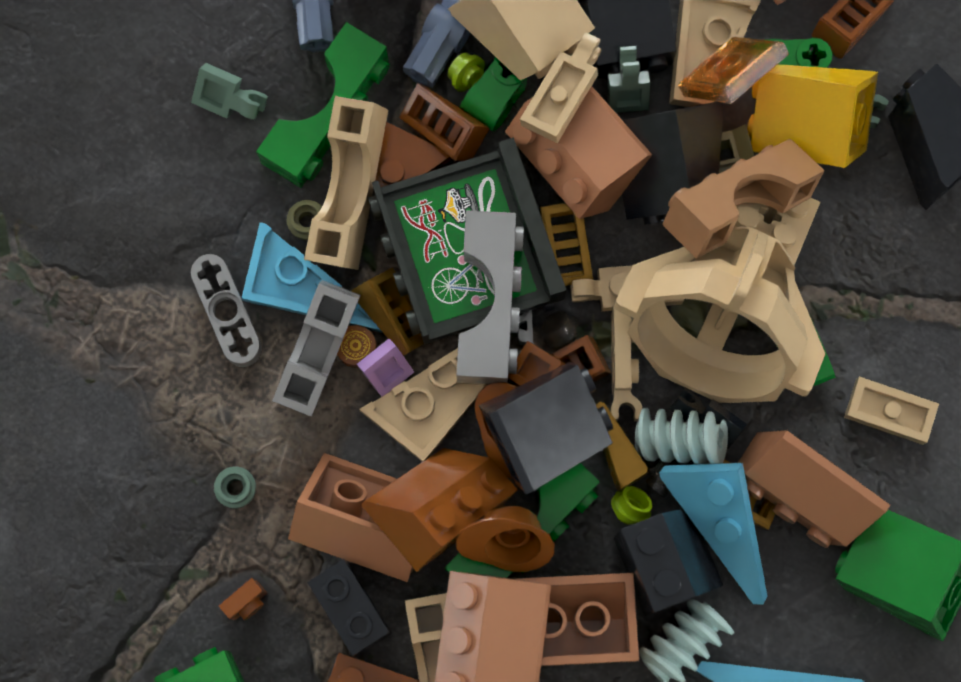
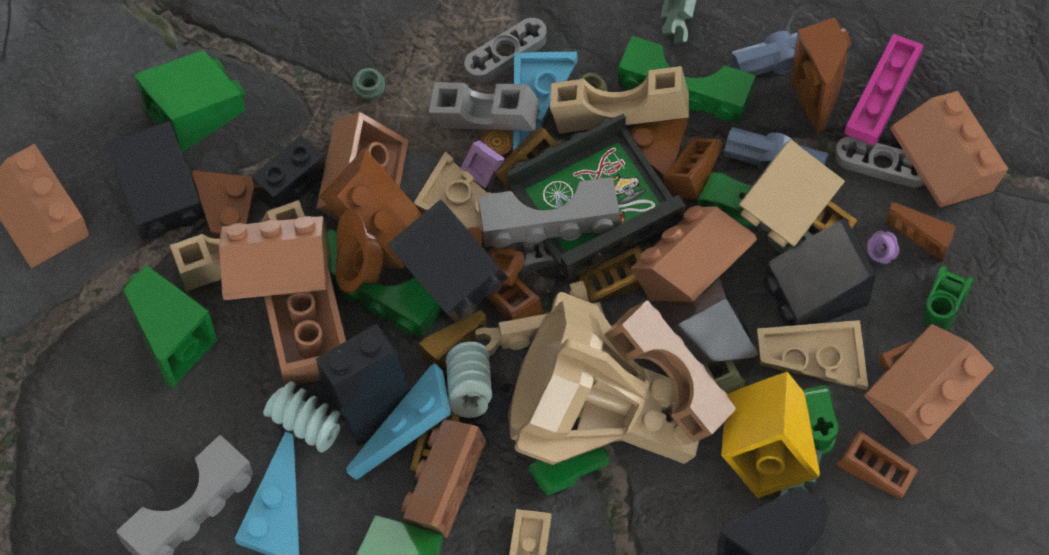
camera: 80 degrees right, 15 degrees down
(244, 601) = (283, 105): dark orange plate -> none
(465, 71) = (742, 171): lime plate -> none
(563, 90) = (730, 225): tan plate -> none
(630, 87) = (758, 290): sand green plate -> none
(631, 505) = (414, 358): lime plate -> none
(733, 69) = (786, 356): clear orange tile -> none

